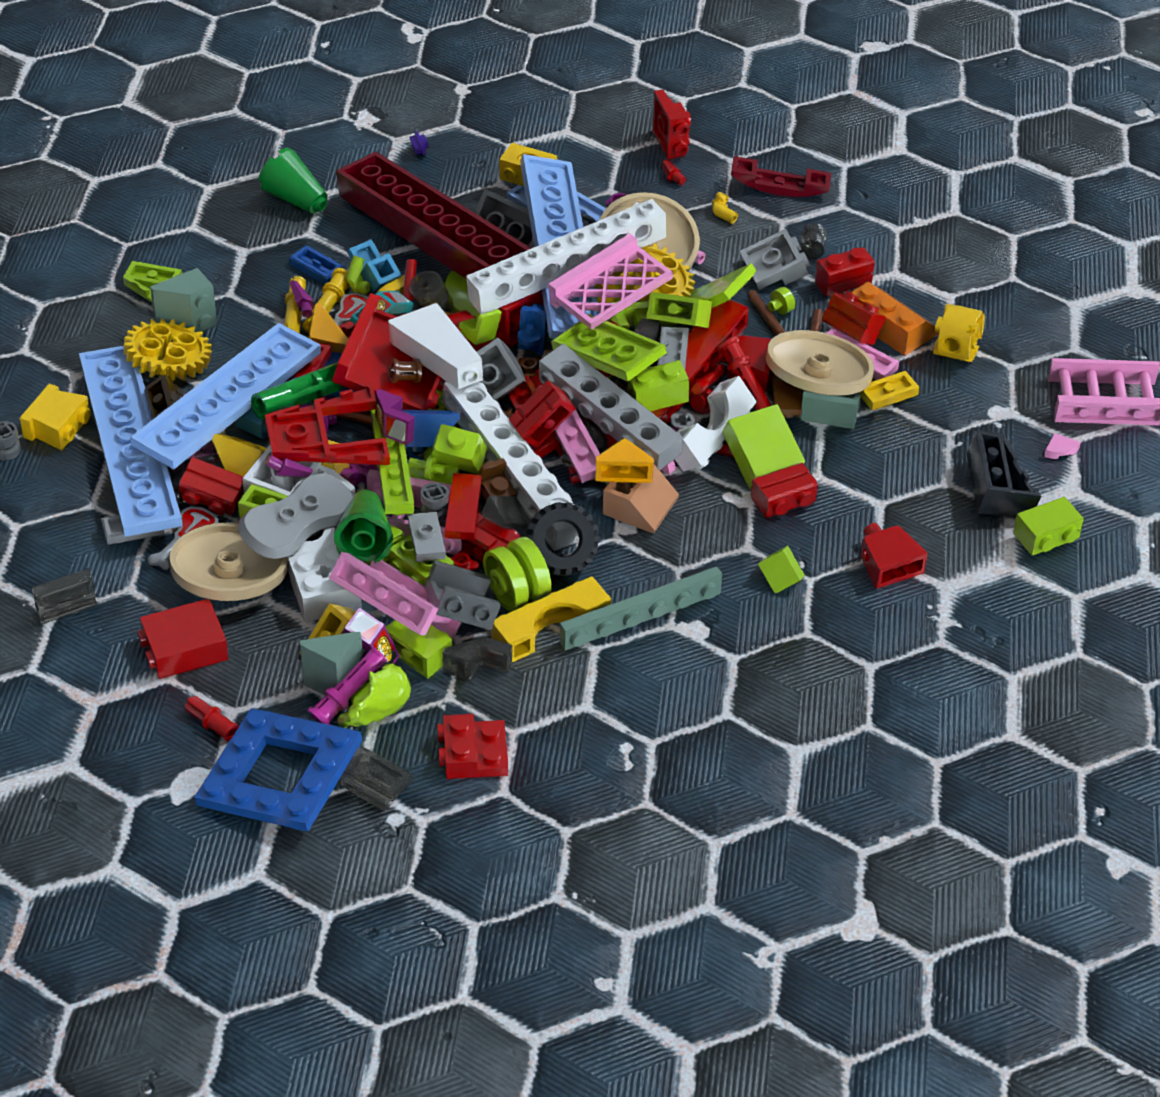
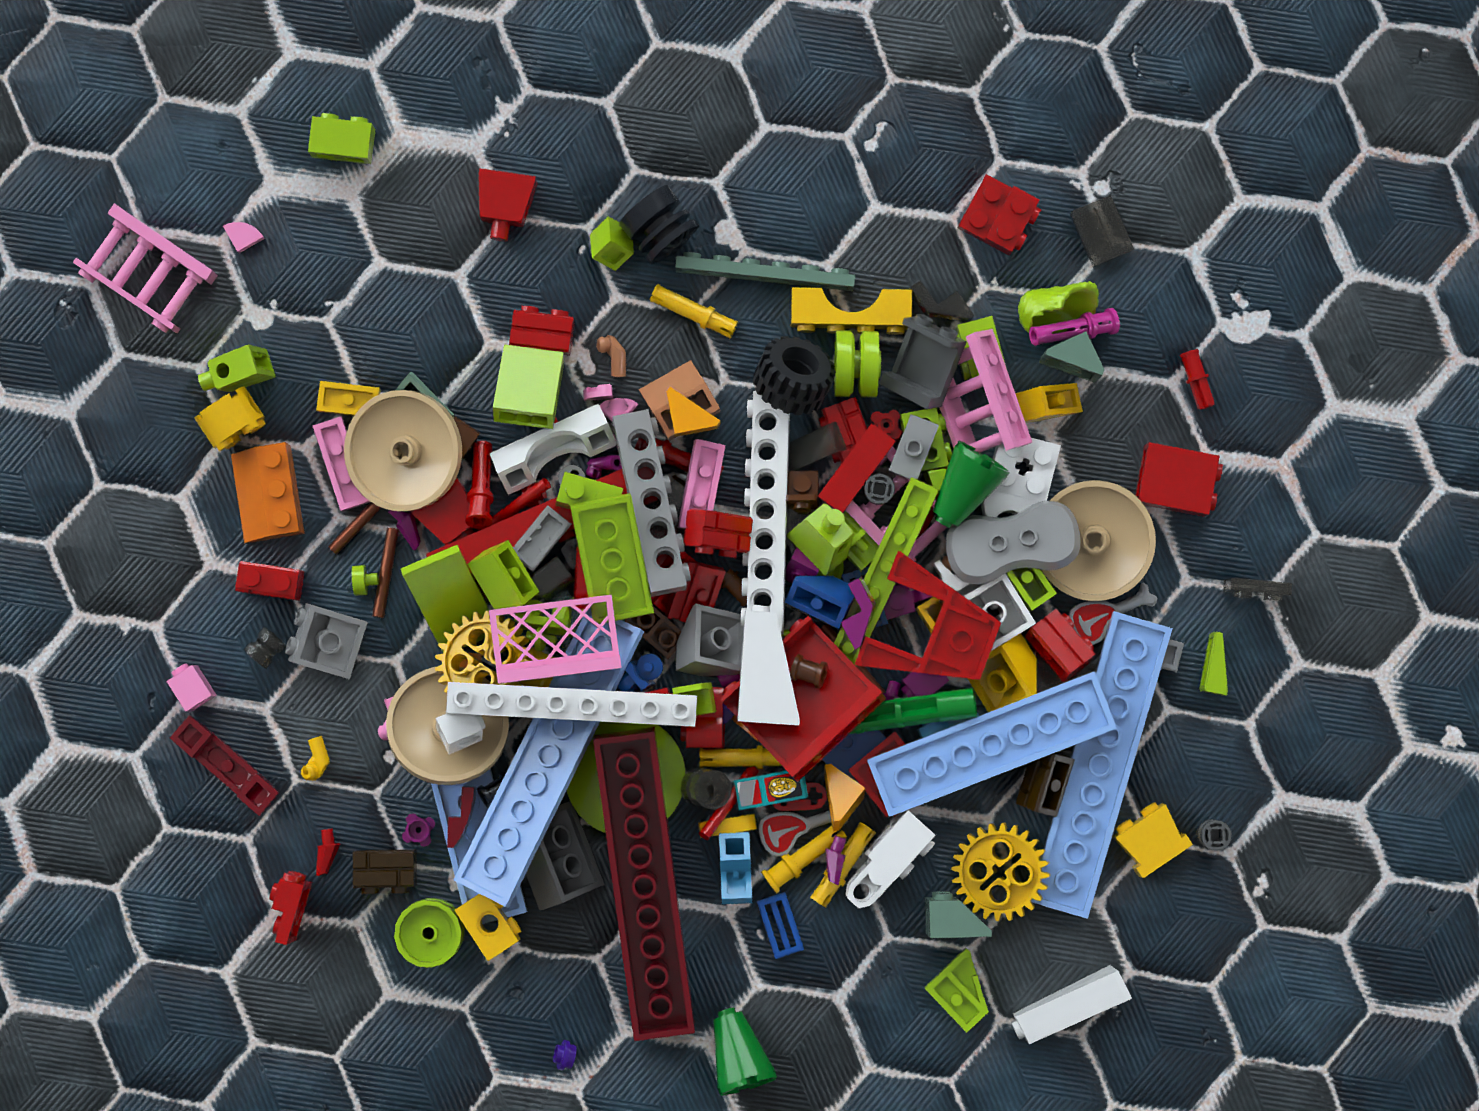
camera: 150 degrees left, 40 degrees up
(56, 304) = (1071, 1005): none -> white slope
(67, 534) = (1214, 668): none -> lime slope
(258, 308) = (891, 857): none -> white brick
(288, 468) = (995, 606): magenta bar -> none
(332, 752) = (1118, 280): blue plate -> none
(354, 276) = (762, 863): lime arm -> none
(373, 635) = (1029, 364): slope -> none
(570, 145) = (412, 939): none -> lime wheel
(594, 201) = (458, 824): none -> dark red slope
(624, 174) = (384, 870): none -> dark brown brick
(677, 560) = (698, 313): none -> yellow pin
(685, 479) = (617, 407): none -> bright pink tile
(706, 478) = (600, 392): none -> bright pink tile
(714, 507) = (616, 352): none -> nougat arm
(753, 585) = (662, 228): none -> black wheel
(842, 202) = (190, 687): none -> bright pink brick
(854, 318) = (317, 501): red brick -> none
(980, 356) = (237, 369): none -> lime torso
(996, 477) = (341, 222): black wedge -> none

